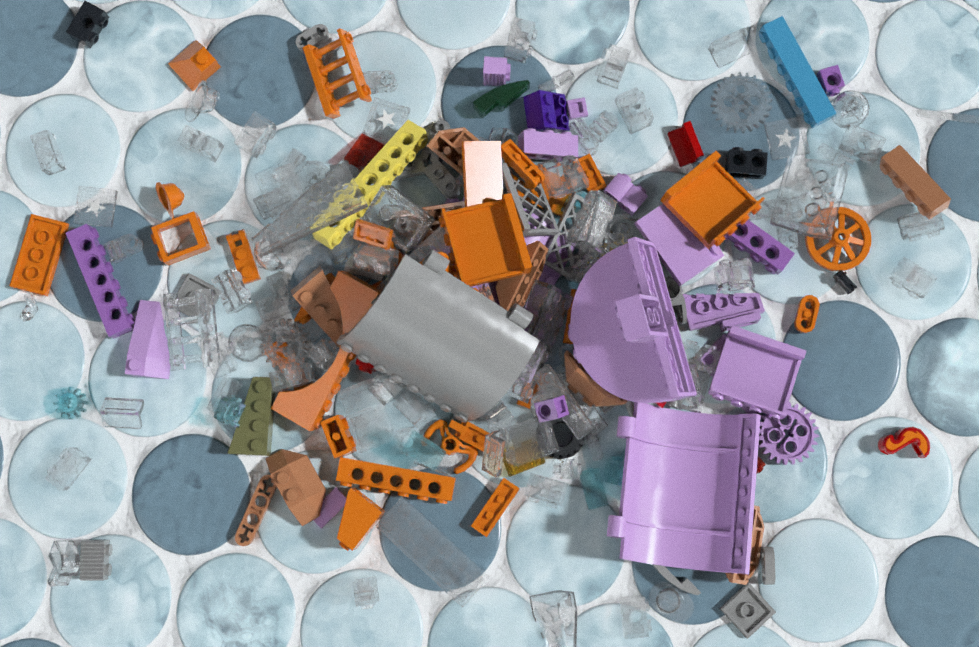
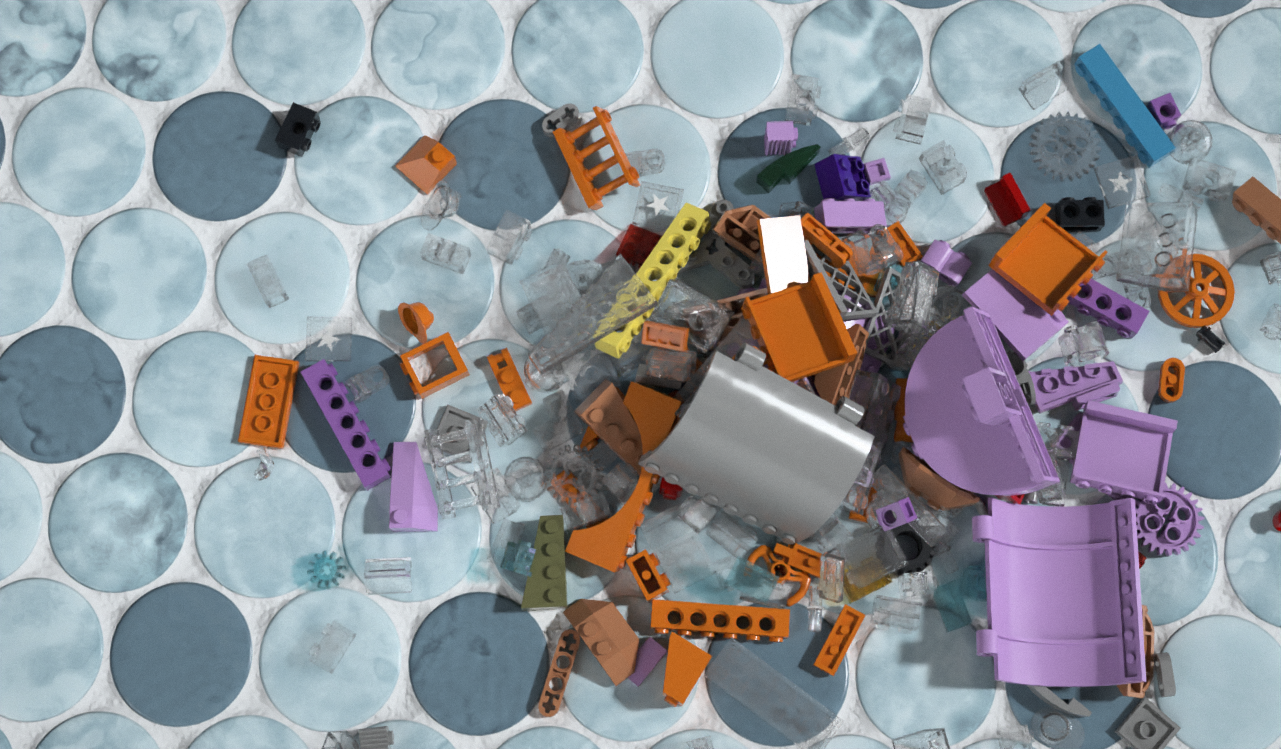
camera: 10 degrees left, 5 degrees down
(477, 479) = (814, 610): none -> clear axle

